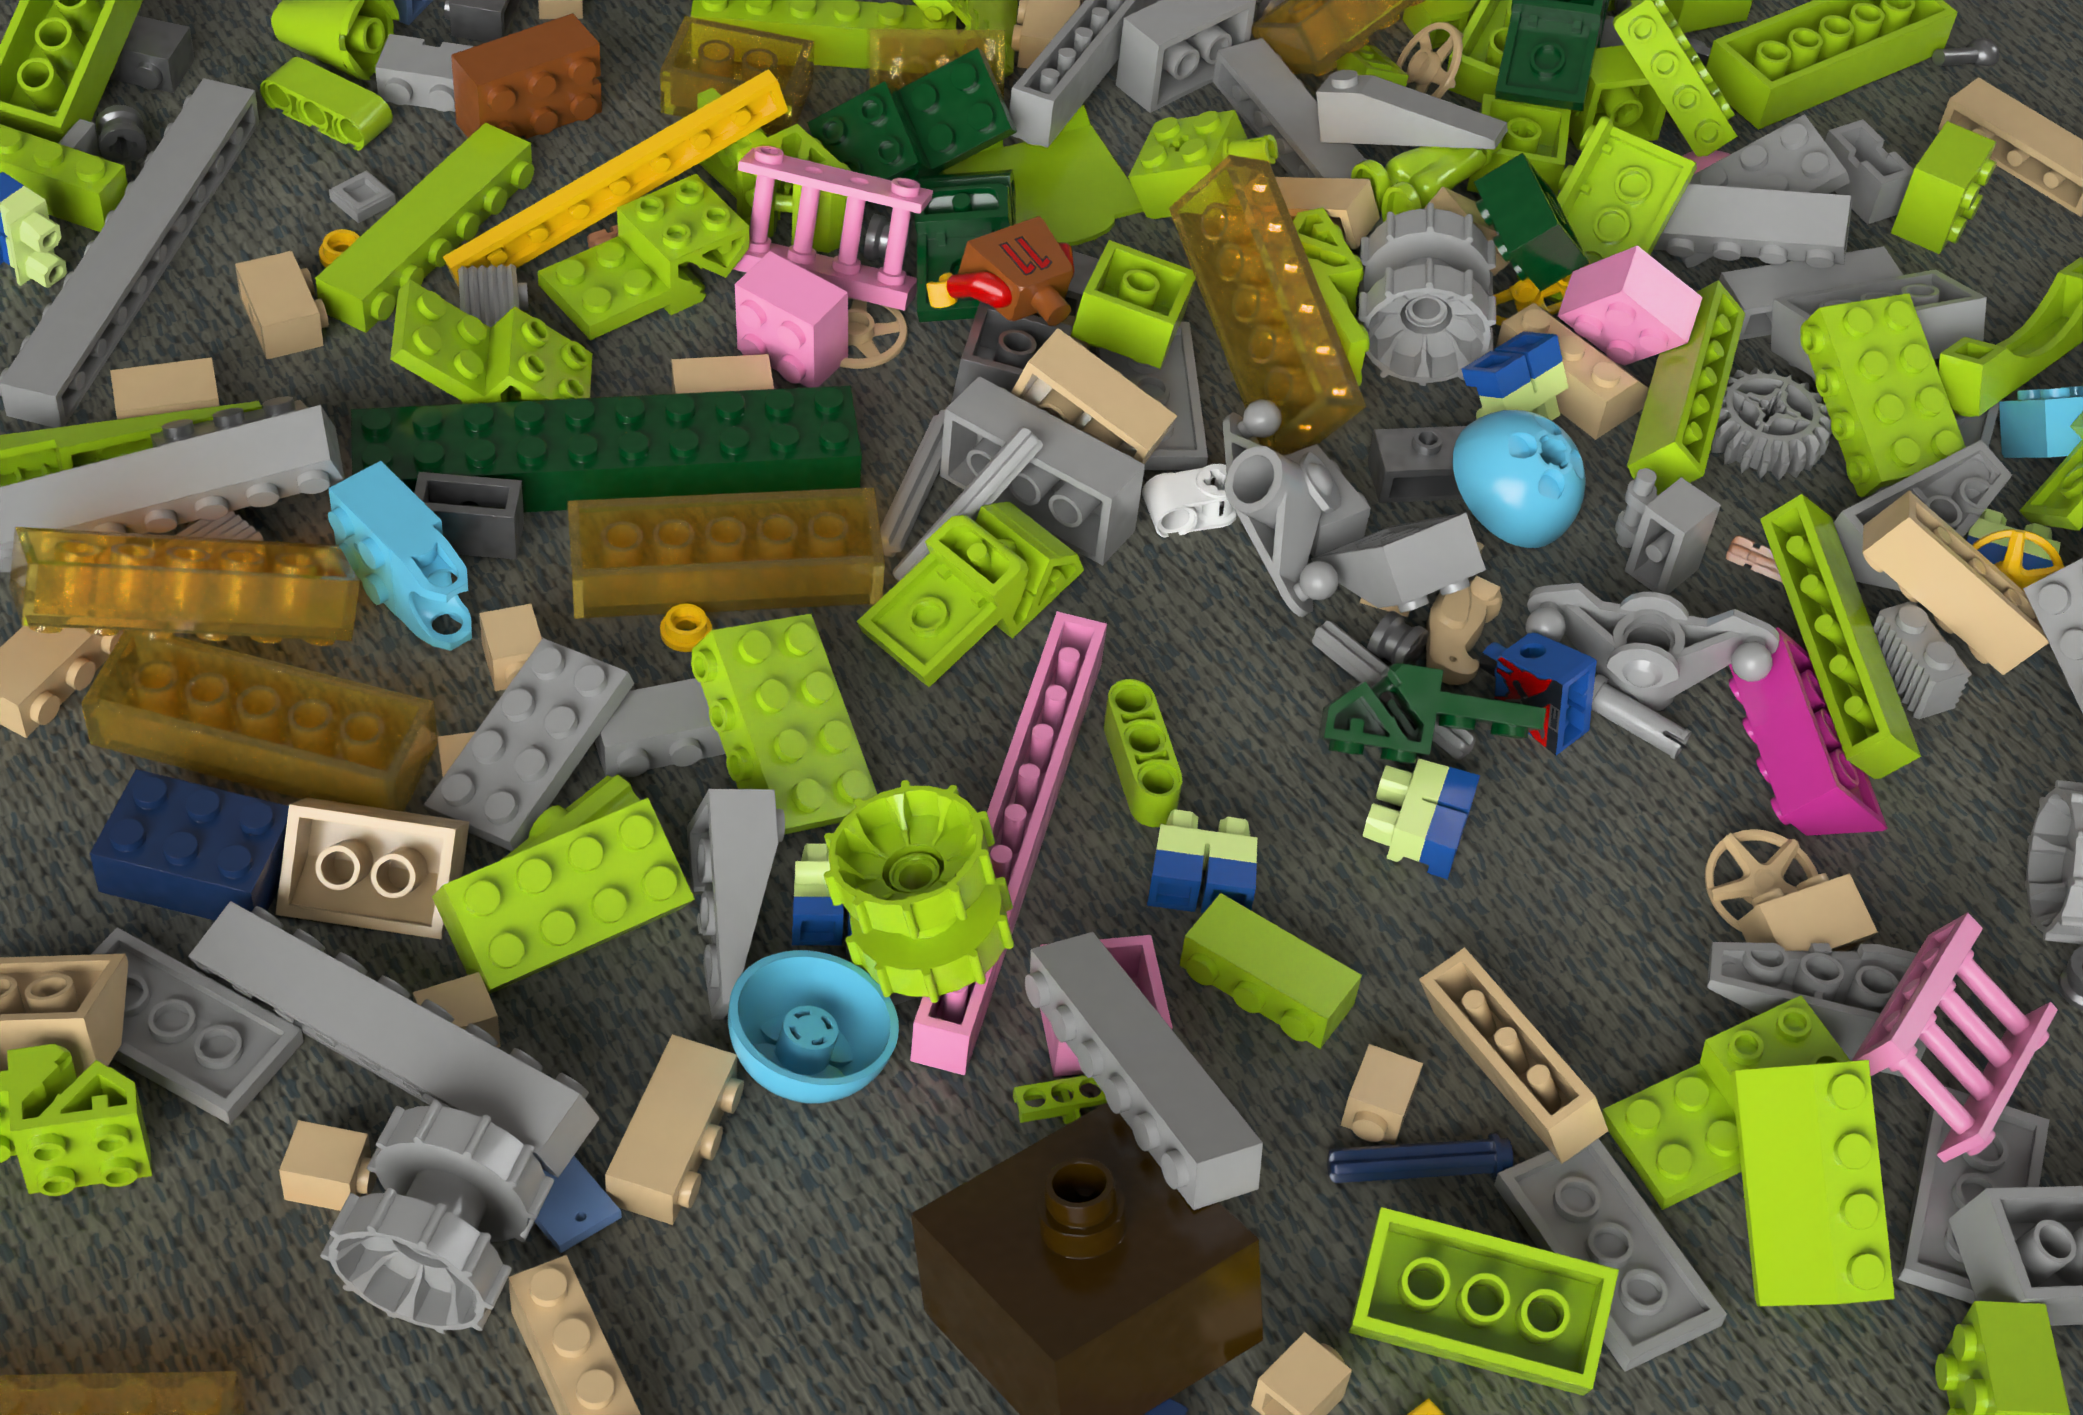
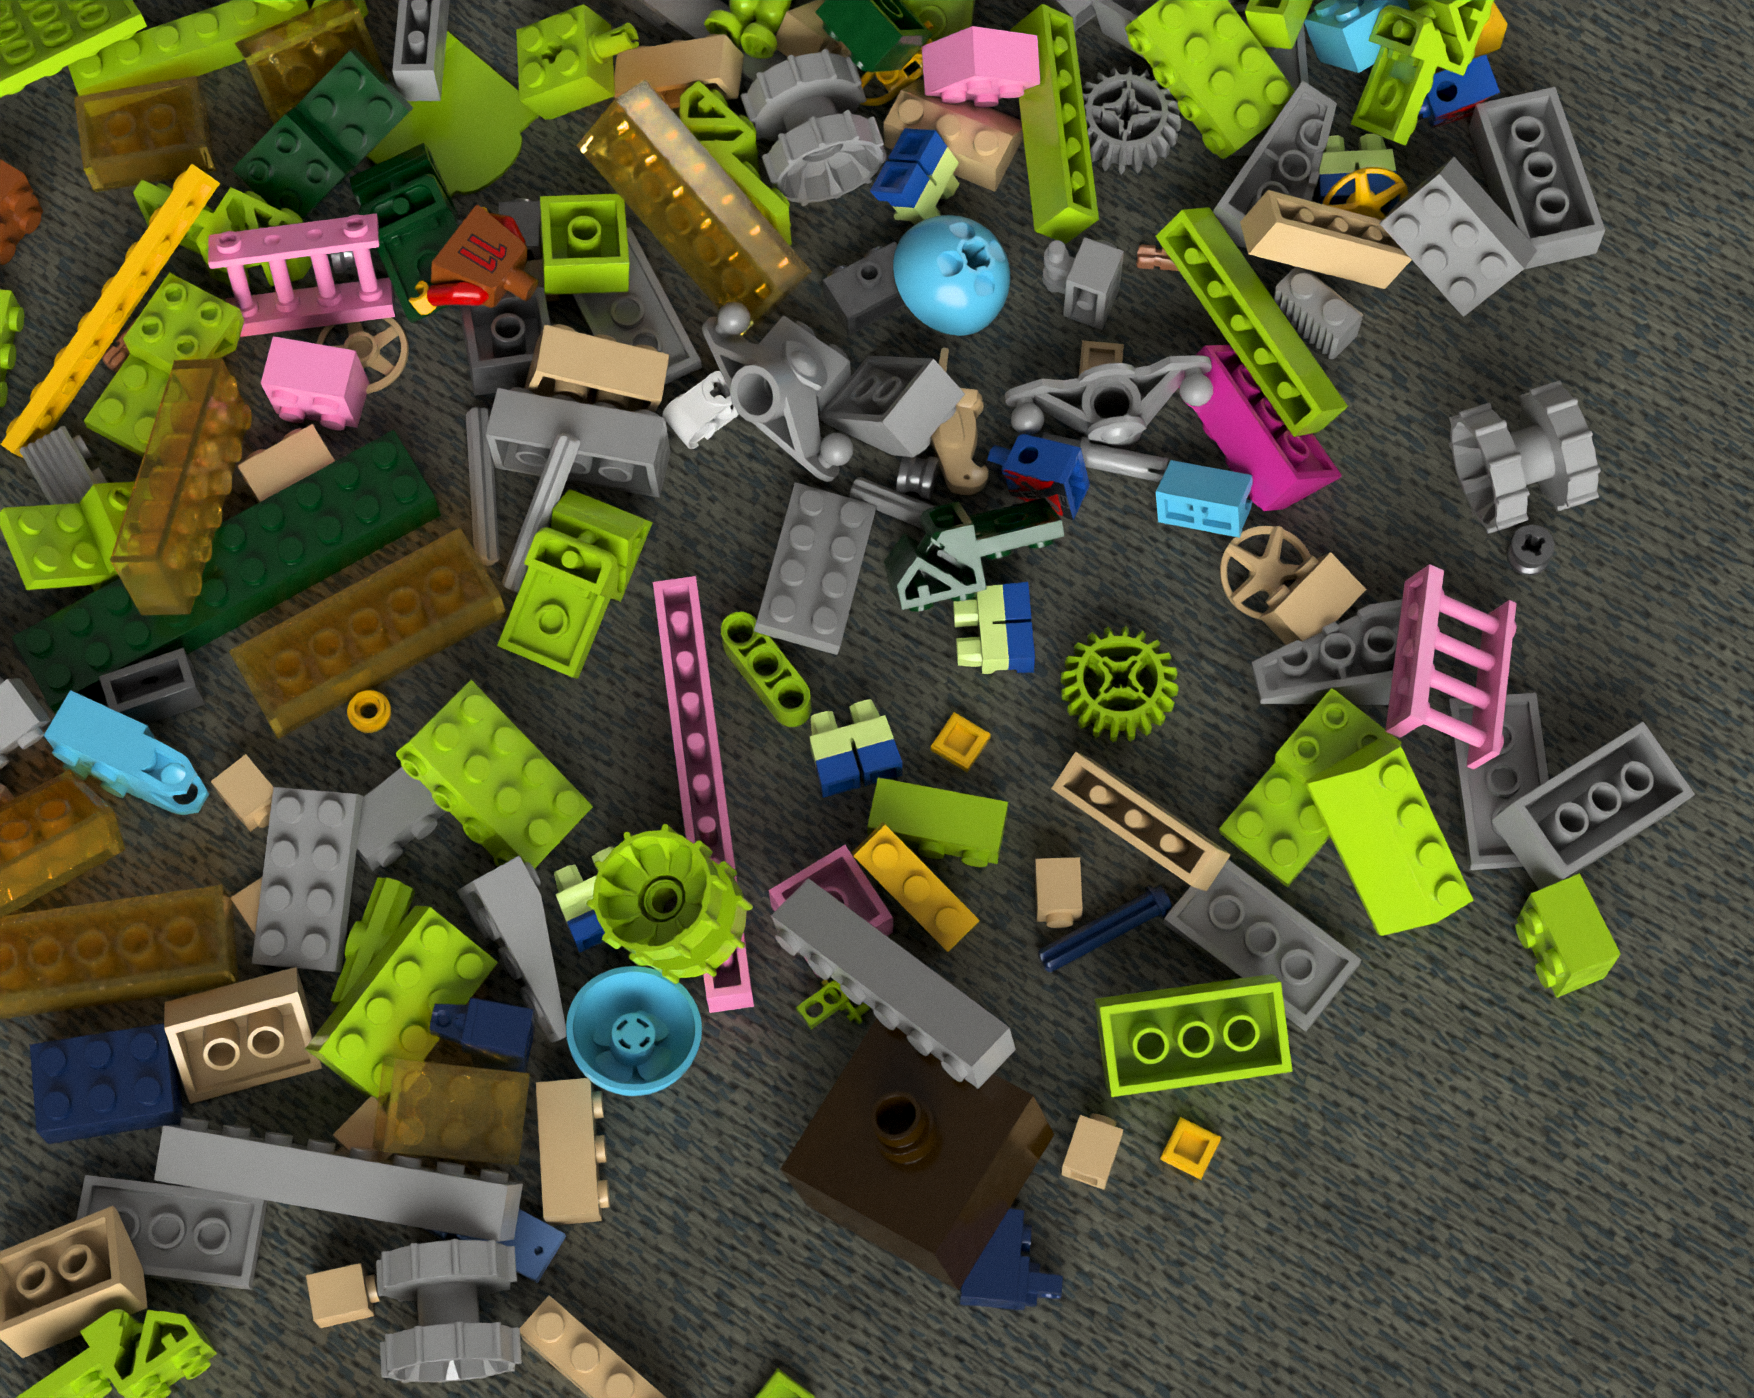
camera: 15 degrees left, 20 degrees up
(562, 1010) = (450, 1111): none -> clear yellow brick
(599, 336) = (181, 487): none -> clear yellow brick
(651, 960) = (488, 1030): none -> dark blue hinge
(1213, 1011) = (915, 886): none -> yellow brick
(1242, 679) = (815, 569): none -> light grey plate
(1331, 910) = (960, 742): none -> yellow tile
(1538, 934) = (1143, 709): none -> lime gear
(1717, 780) = (1204, 498): none -> medium azure hinge

